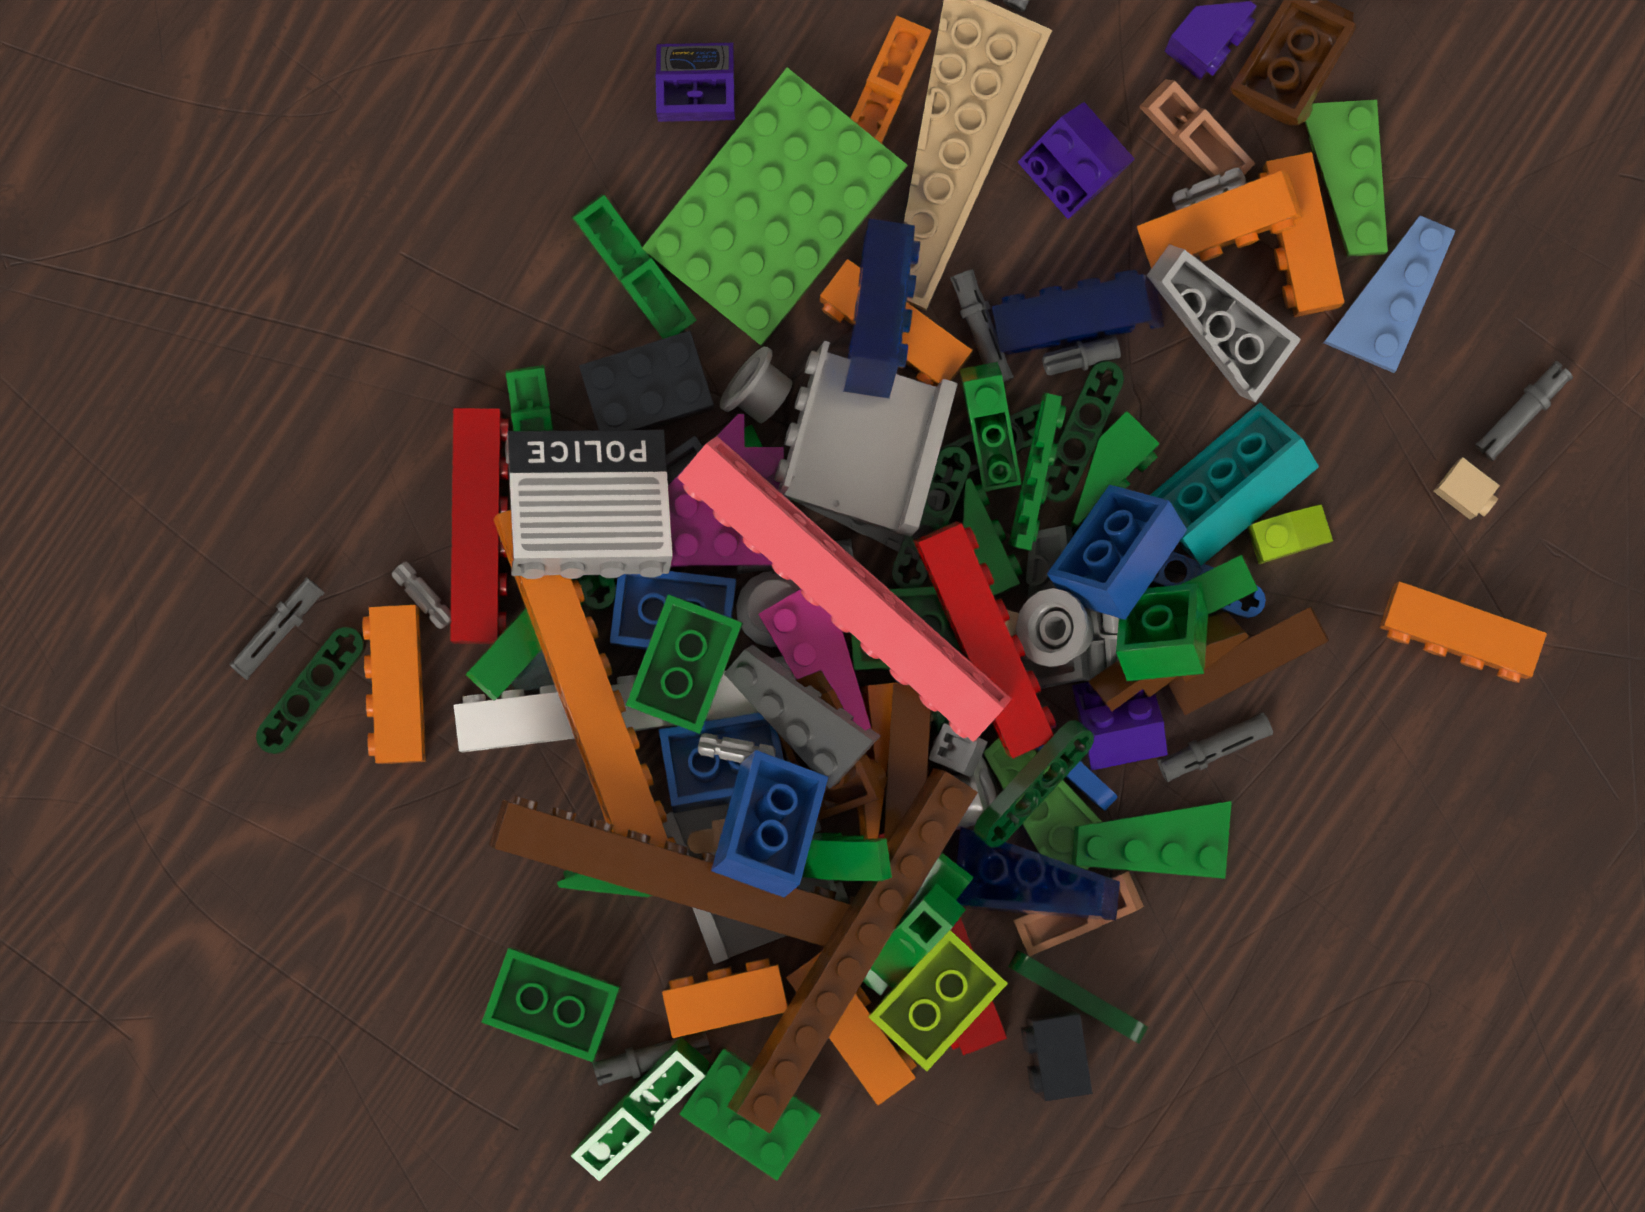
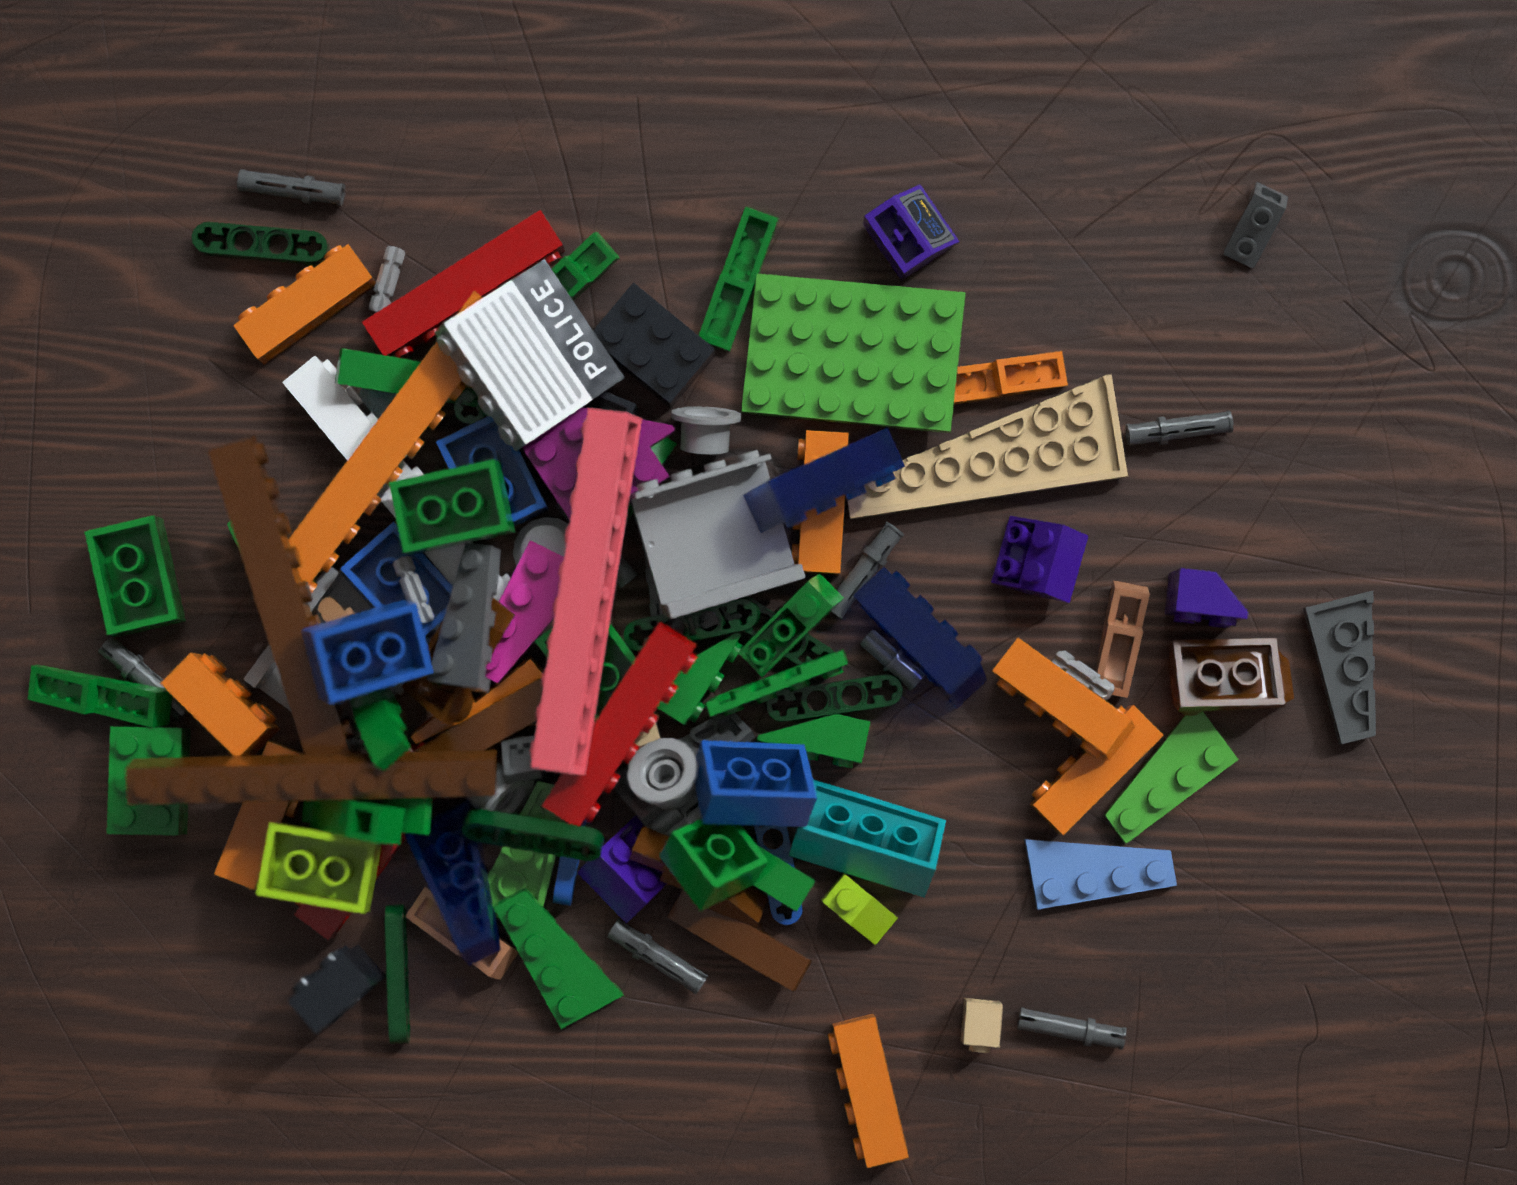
camera: 55 degrees right, 0 degrees up
(1229, 327) = (986, 758): light grey wedge -> none

